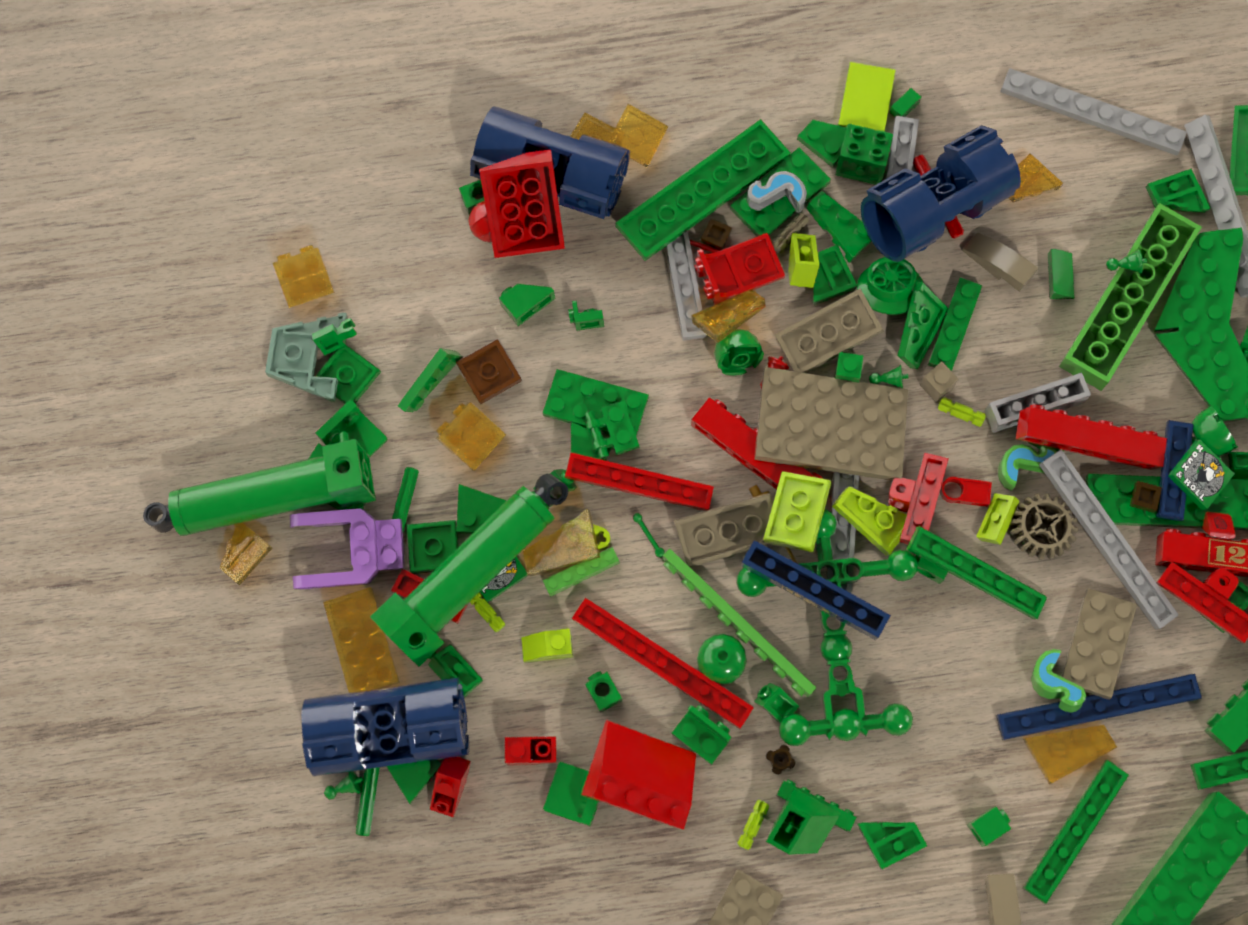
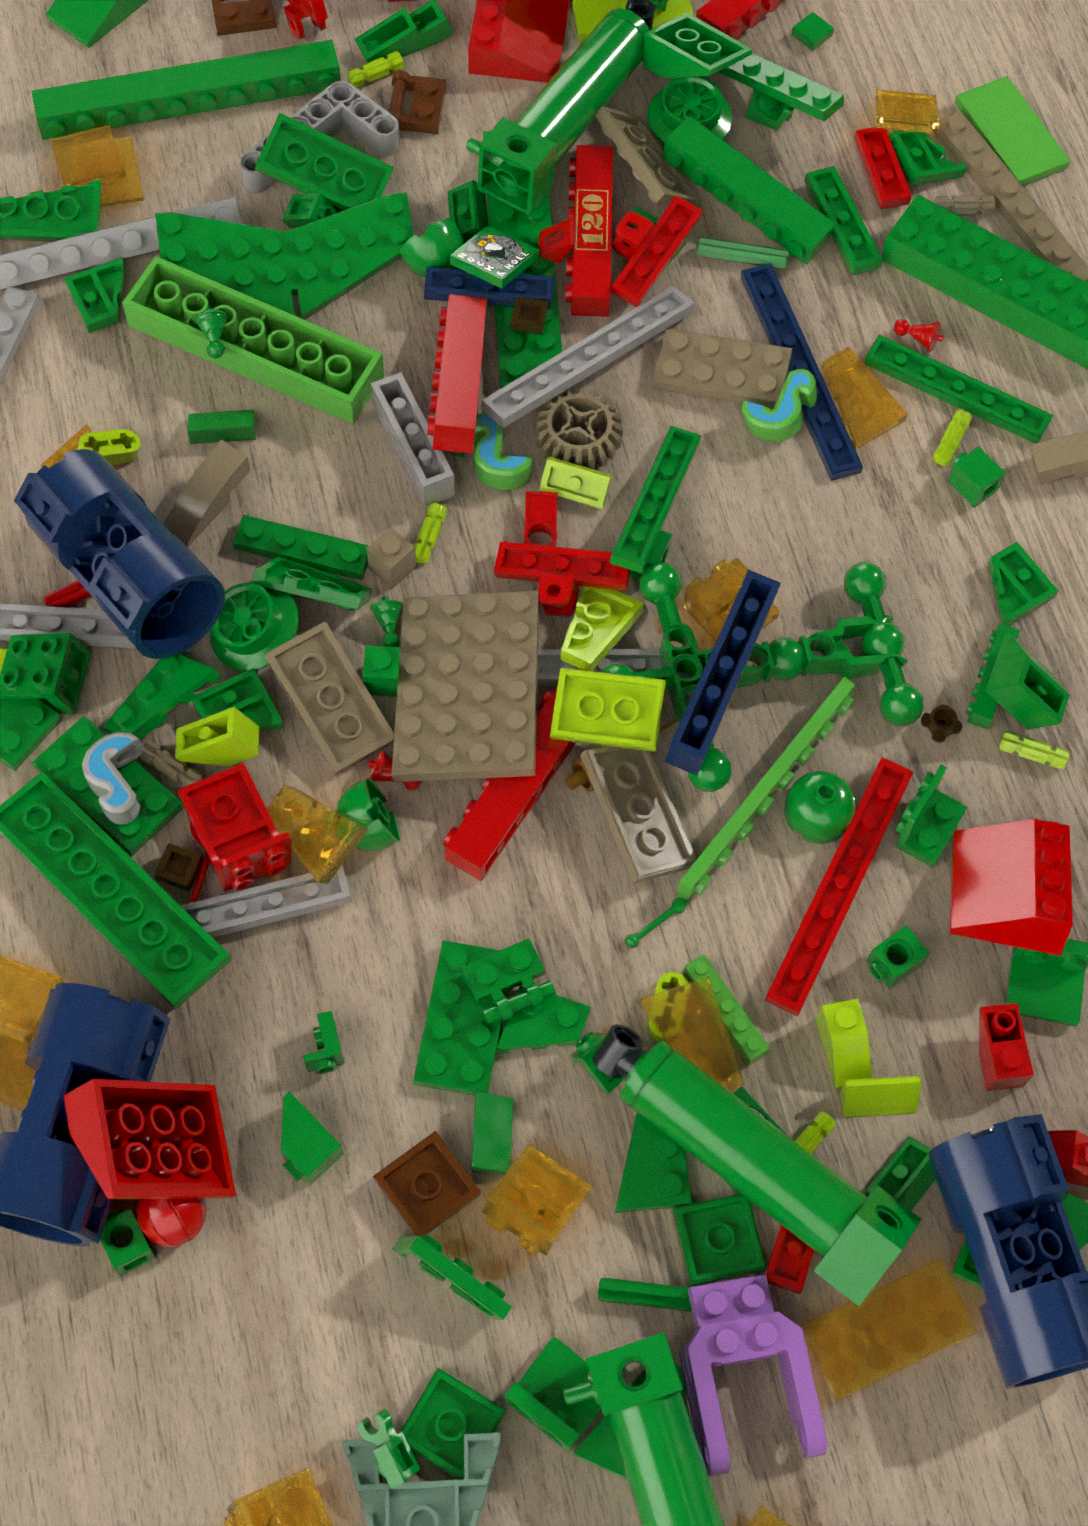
camera: 105 degrees left, 10 degrees down
(510, 664) = (880, 1096): none -> lime slope
(517, 414) = (492, 1134): none -> green slope
(639, 482) = (583, 939): red plate -> none
(776, 702) = (866, 733): green bracket -> none
(902, 621) = (712, 599): none -> clear yellow plate
(1028, 816) = (952, 437): none -> lime axle
(1046, 195) = (108, 445): none -> lime beam
(1128, 812) = (924, 333): none -> red piece
(1213, 677) = (742, 252): none -> green axle

